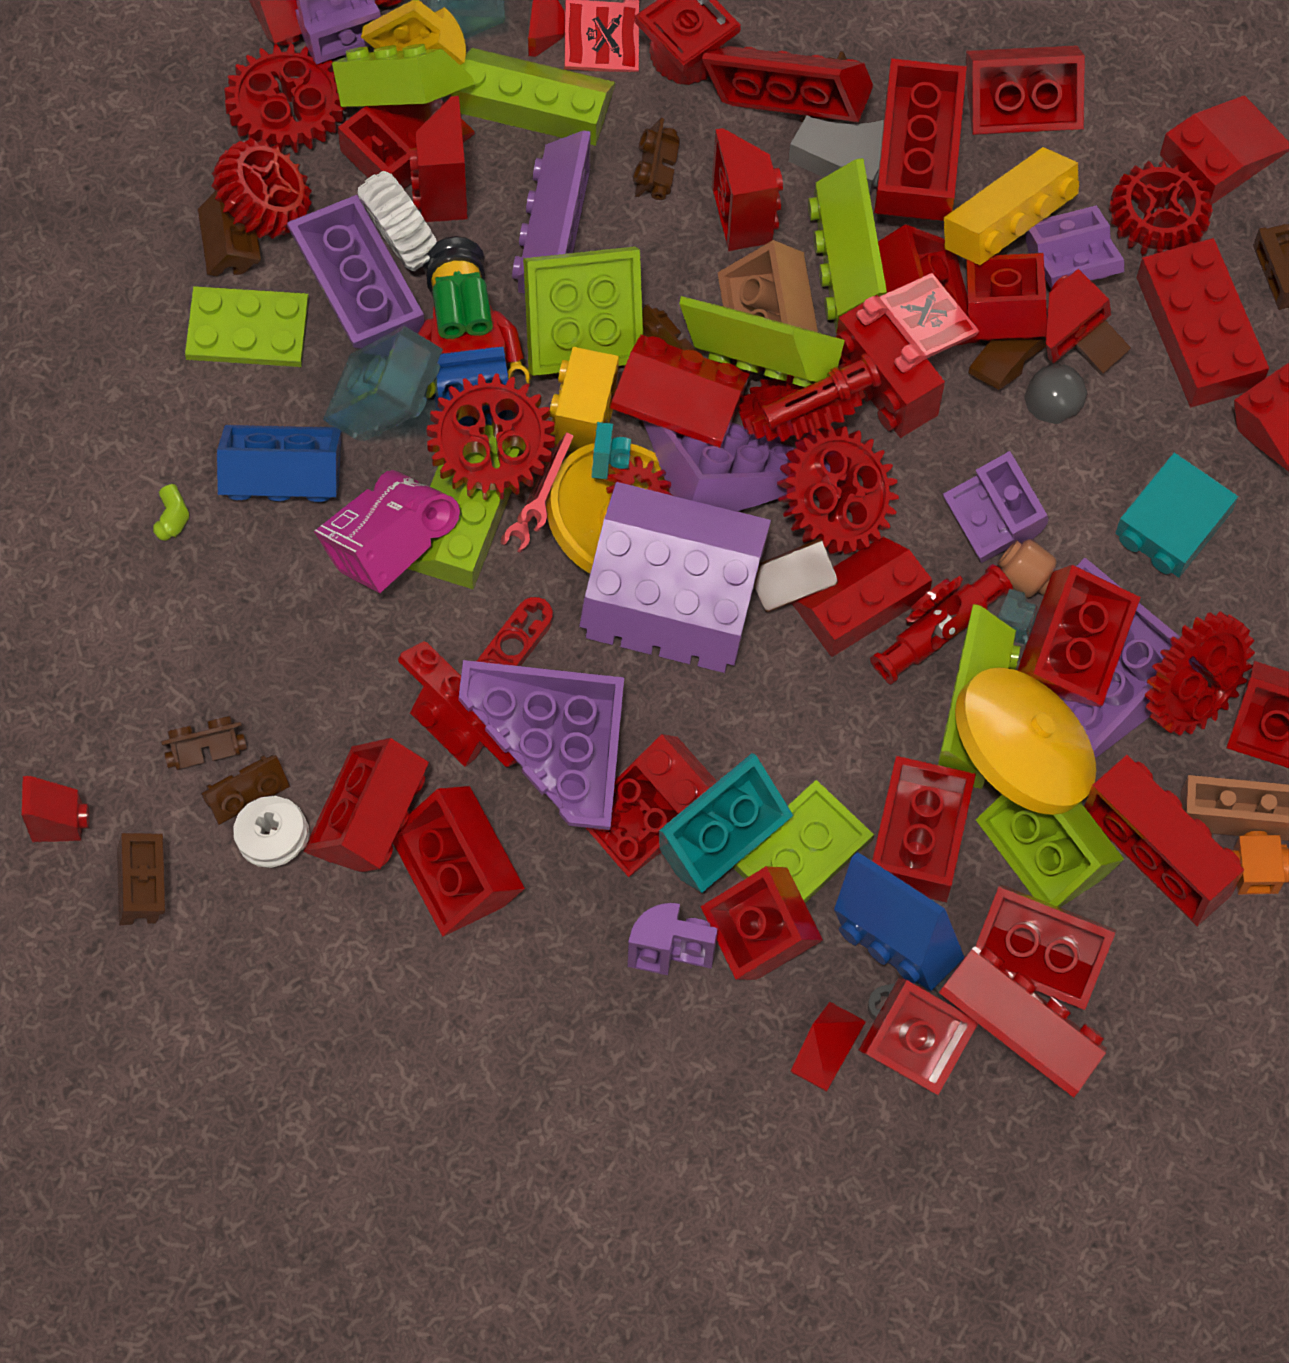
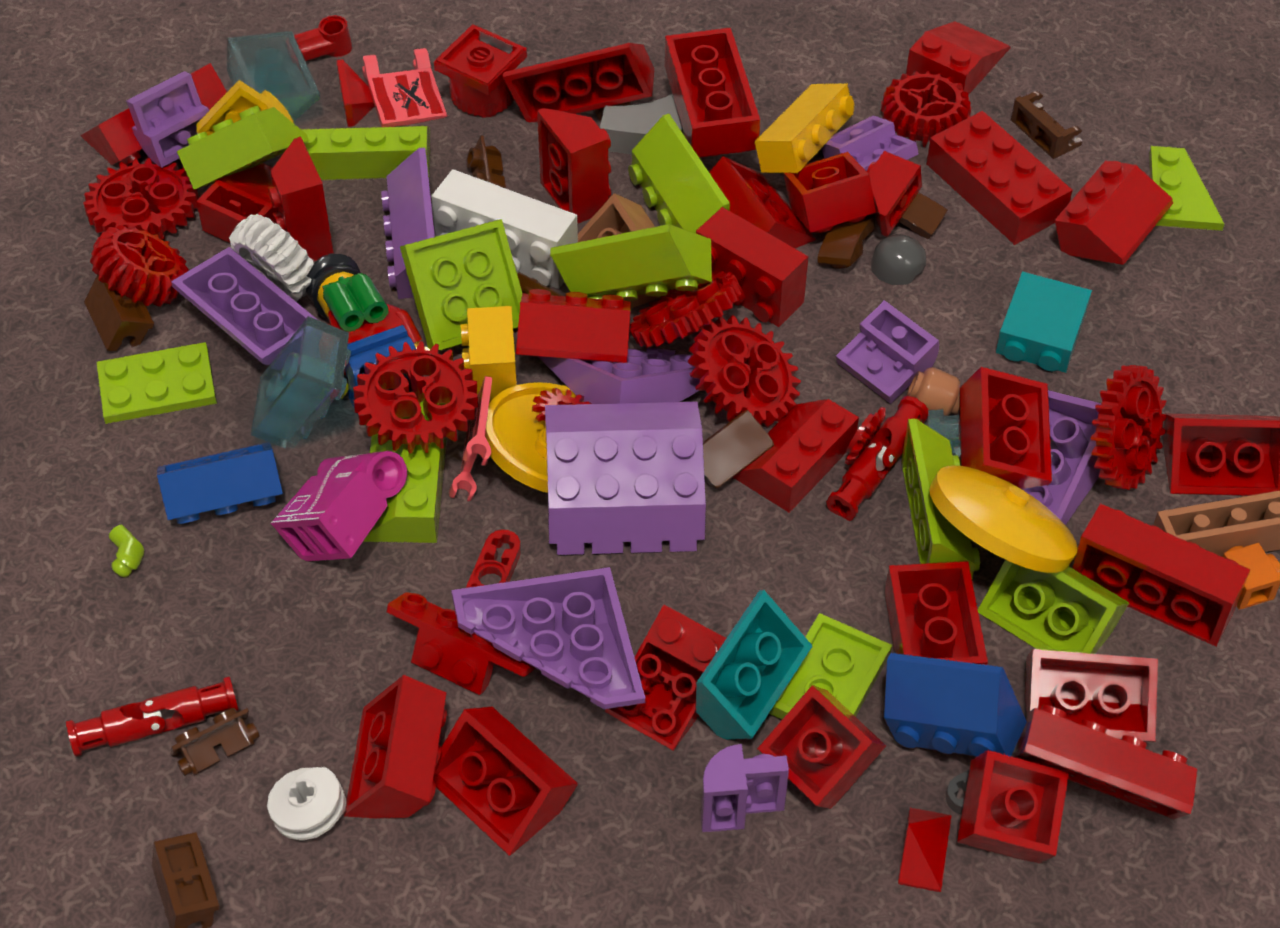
camera: 15 degrees left, 15 degrees down
(52, 811) = (75, 842): red slope -> none
(187, 700) = (145, 717): none -> red piece
(255, 781) = (259, 777): reddish brown hinge -> none
(609, 451) = (526, 386): teal tile -> none
(670, 259) = (528, 223): none -> white brick
(837, 385) = (718, 275): red pin -> none
(924, 317) = (768, 213): coral flag -> none
(1025, 89) = (785, 51): red slope -> none

